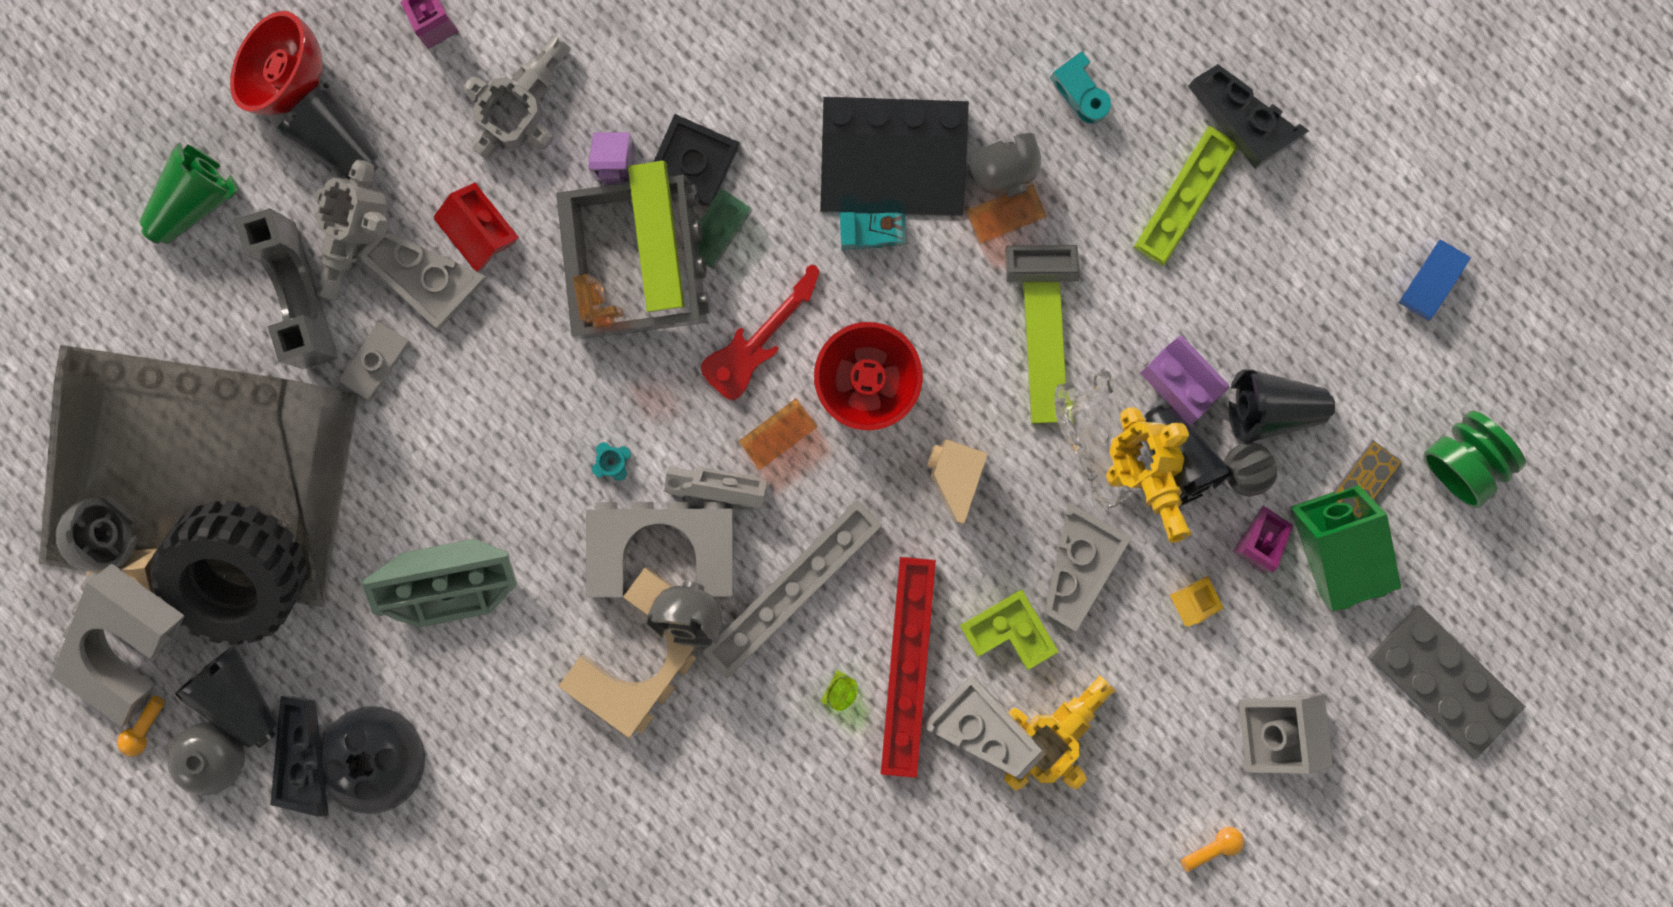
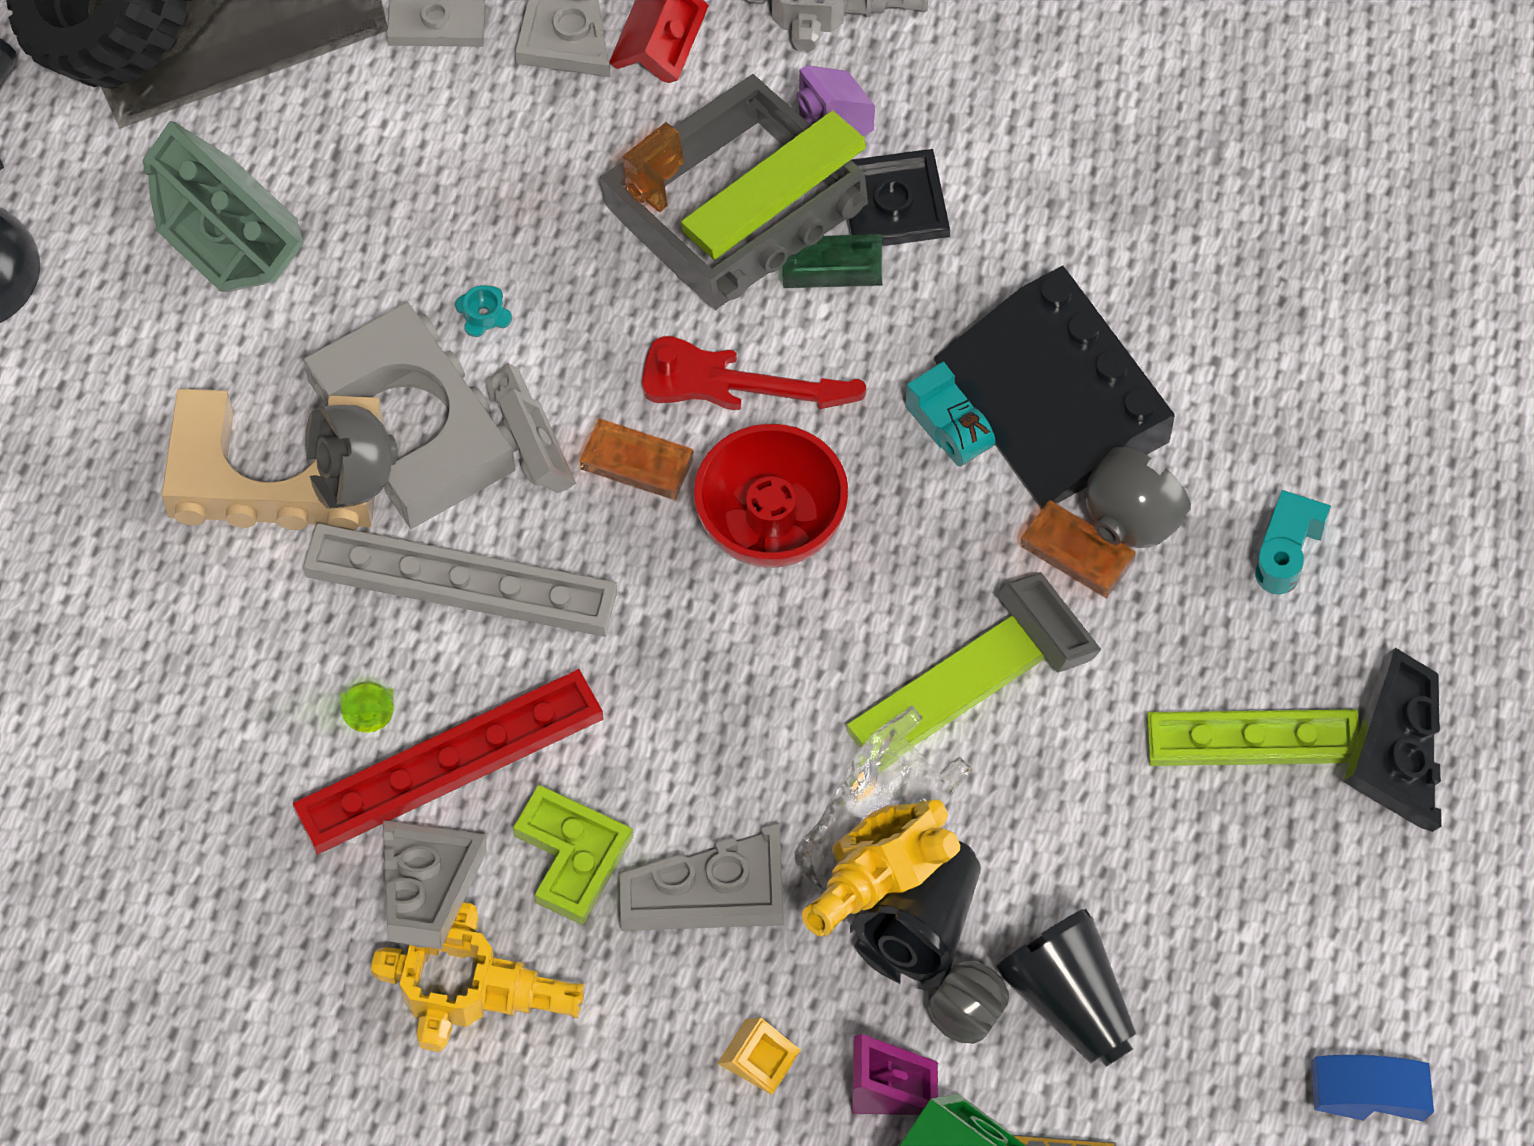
camera: 60 degrees right, 25 degrees down
(956, 476) = (717, 664): tan slope -> none
(1185, 379) = (1024, 861): medium lavender bracket -> none

